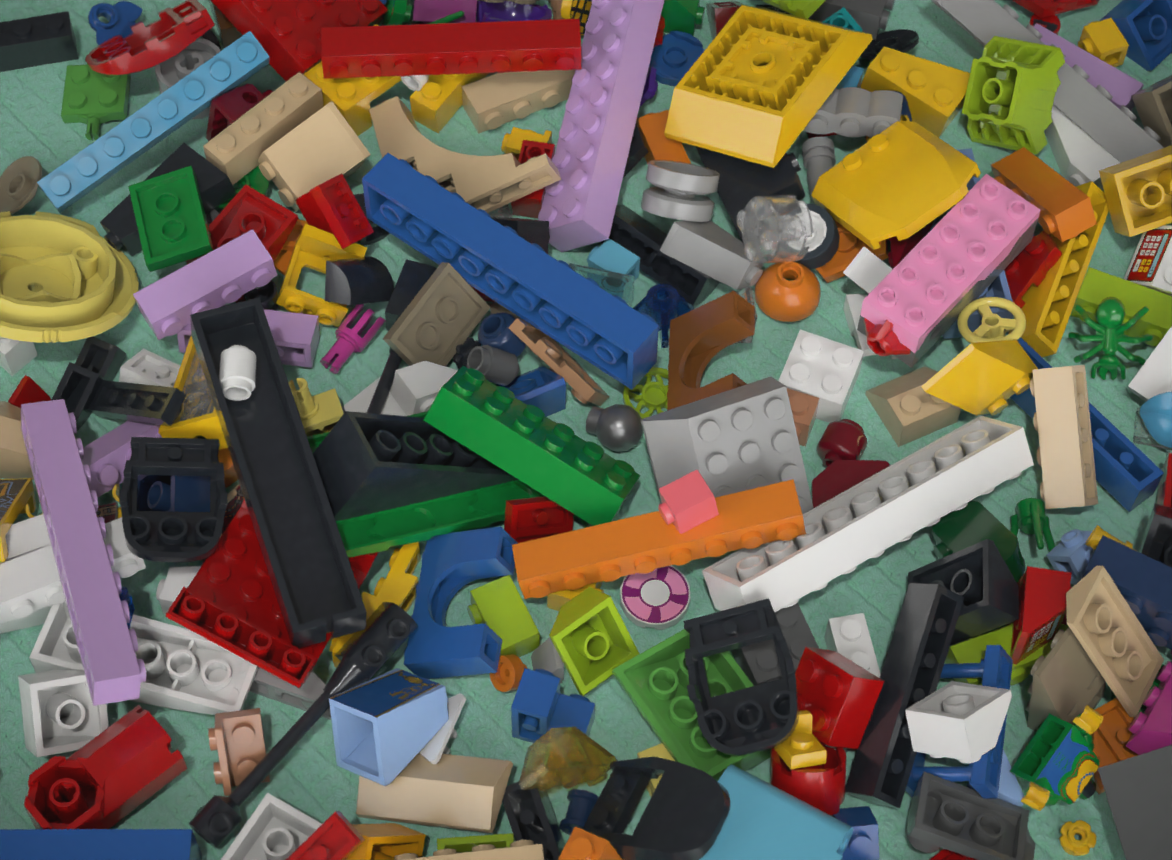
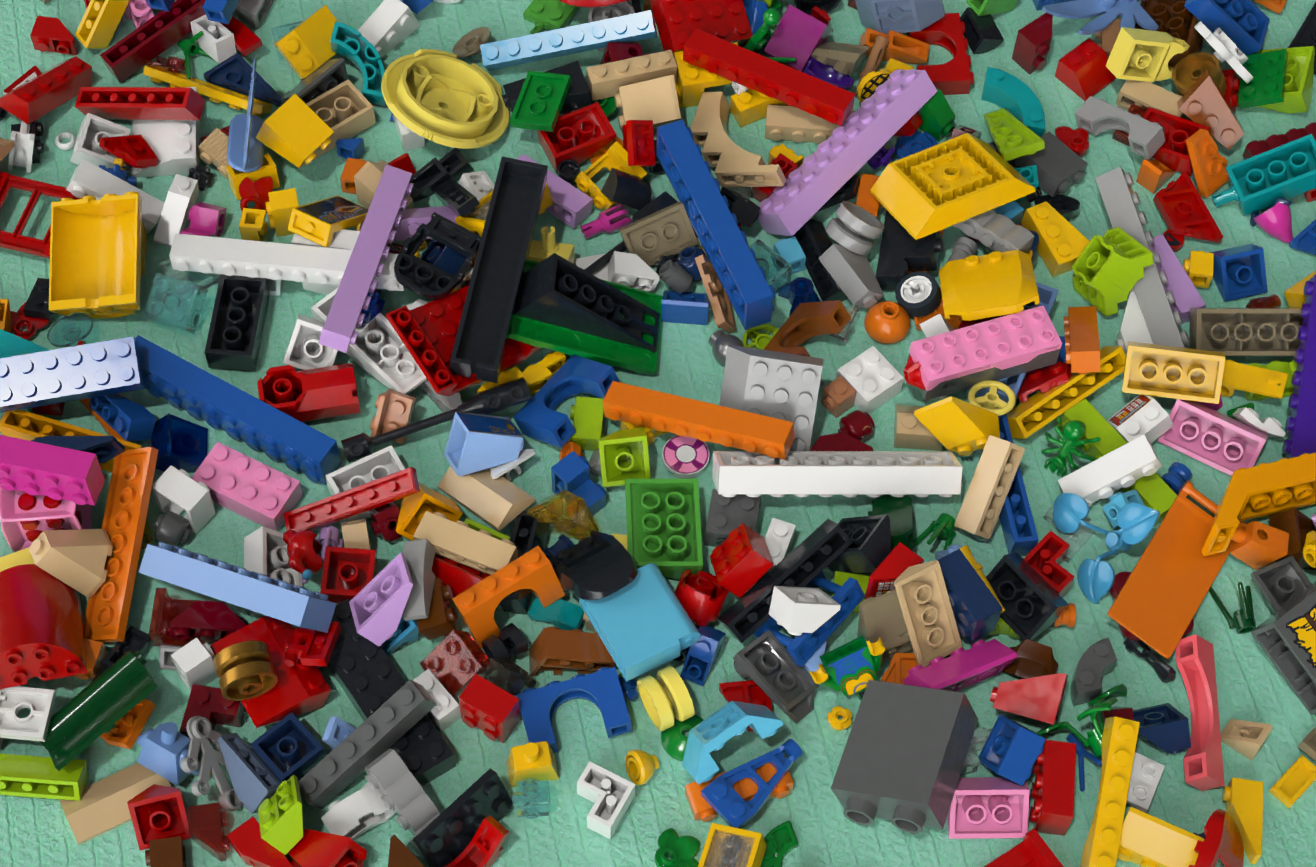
camera: 30 degrees right, 0 degrees up
(205, 284) = (538, 147): lavender brick -> none
(237, 372) = (510, 202): white brick -> none
(532, 446) = (662, 332): green brick -> none
(536, 518) = (644, 375): red wing -> none
(687, 502) = (721, 403): coral brick -> none
(752, 716) = (685, 543): black slope -> none
(775, 229) = (892, 277): clear brick -> none
(802, 747) = (702, 570): yellow bracket -> none

